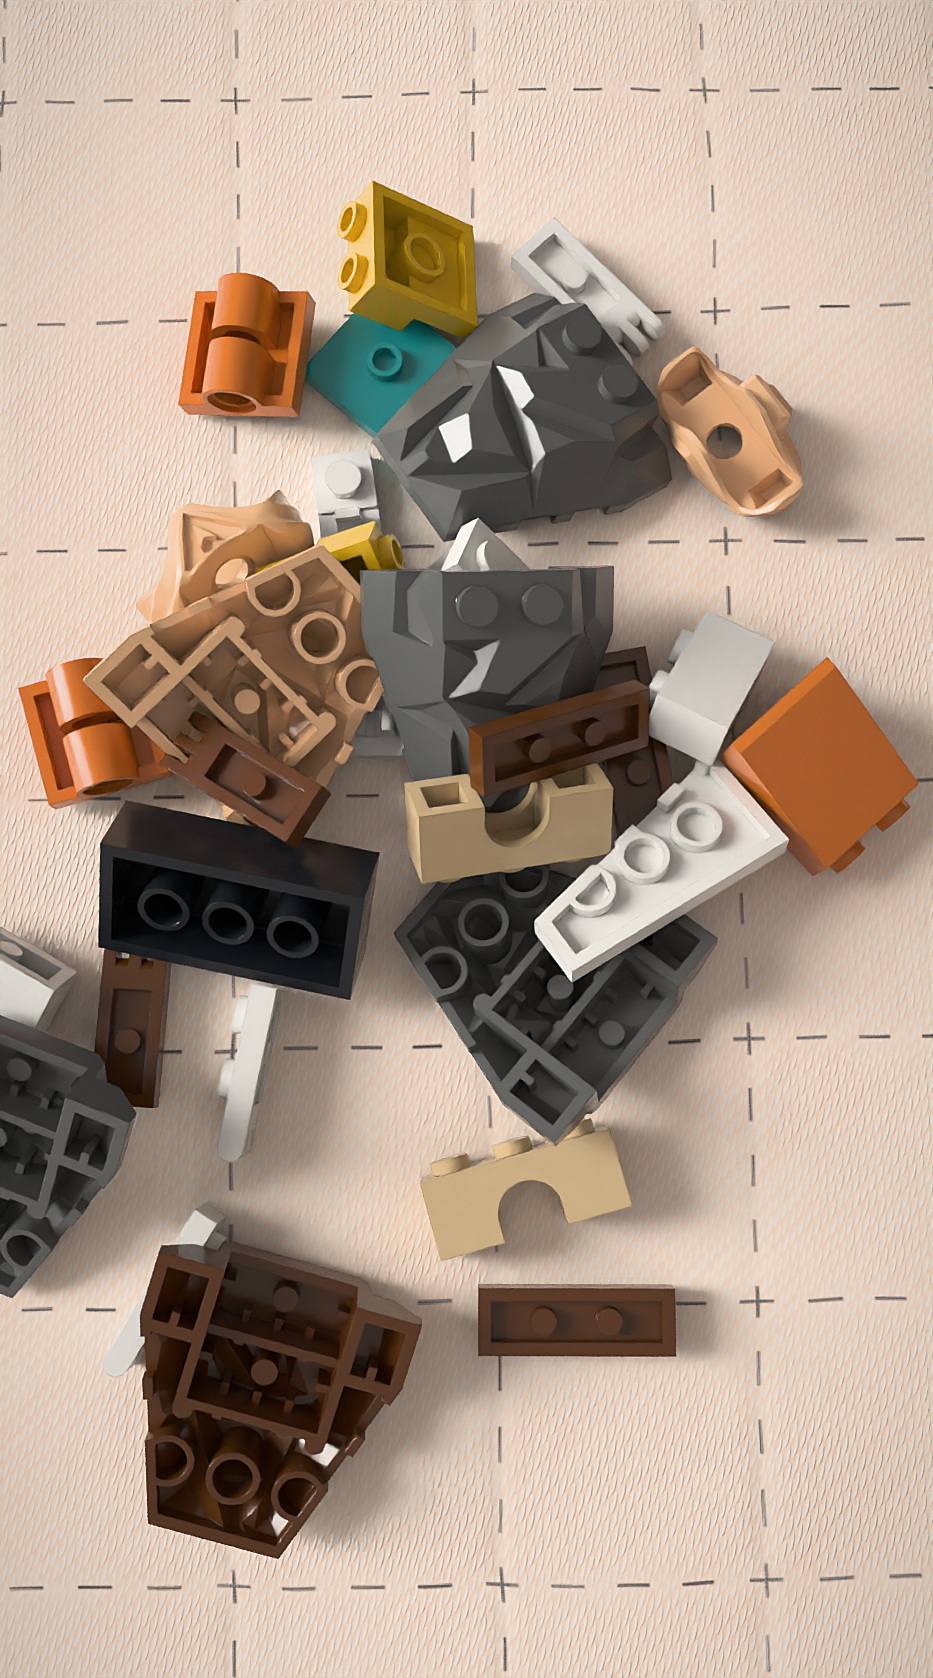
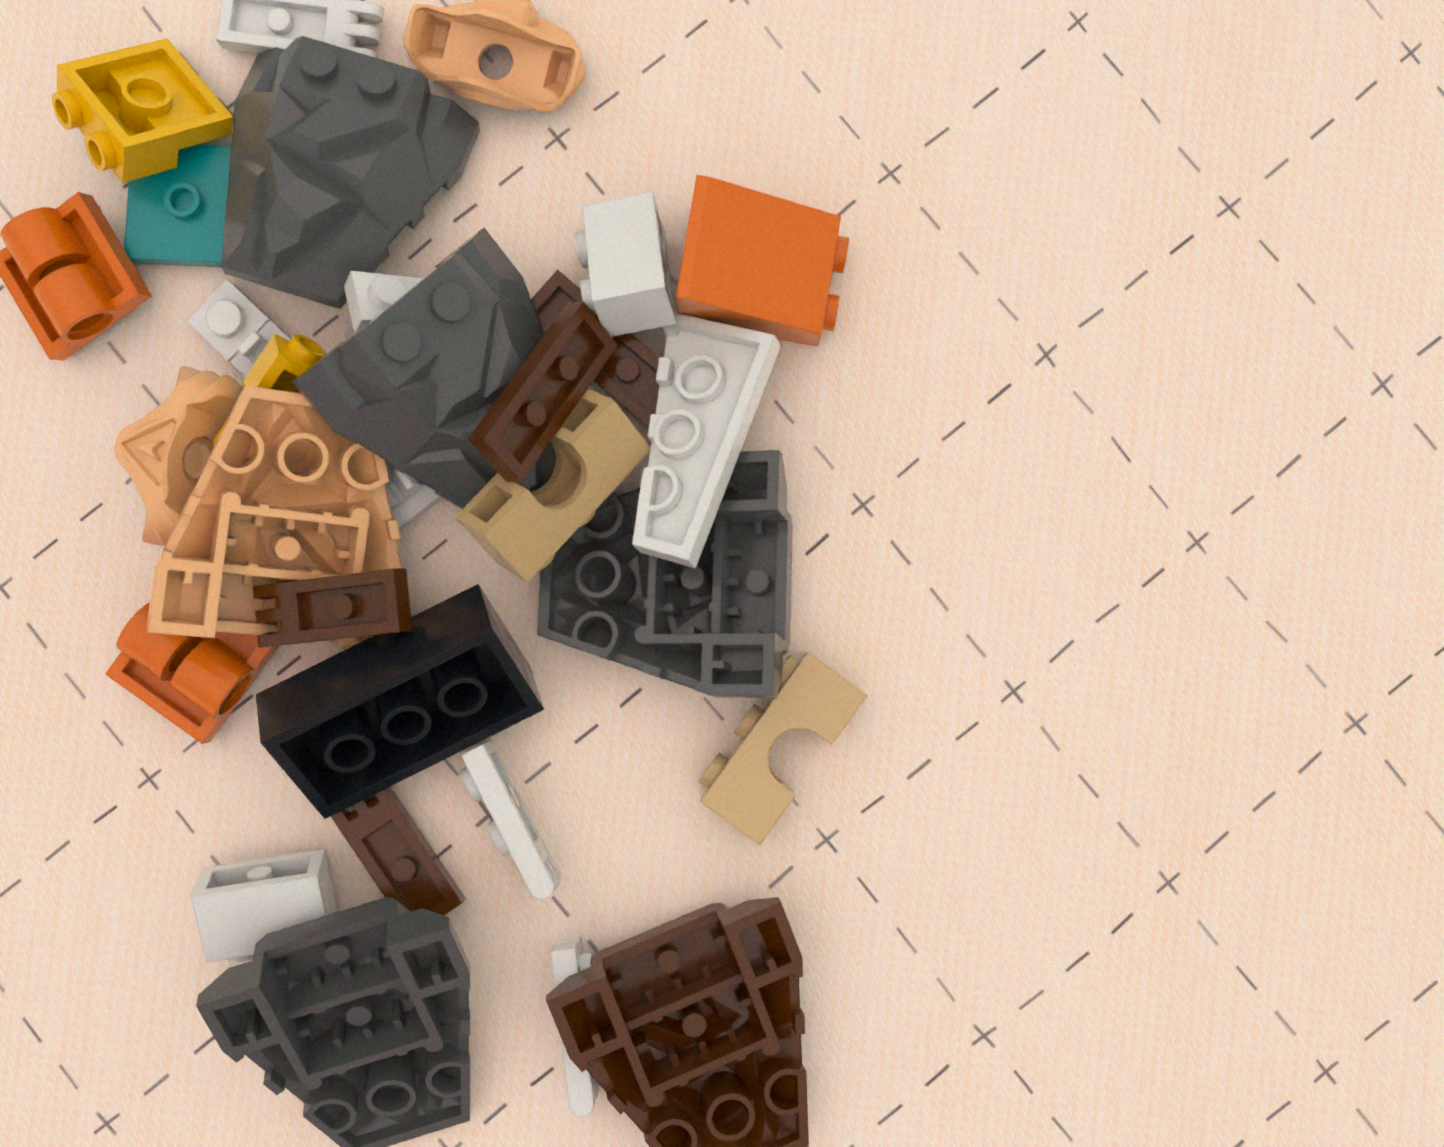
camera: 30 degrees left, 5 degrees up
(577, 1320) = (892, 809): reddish brown plate -> none

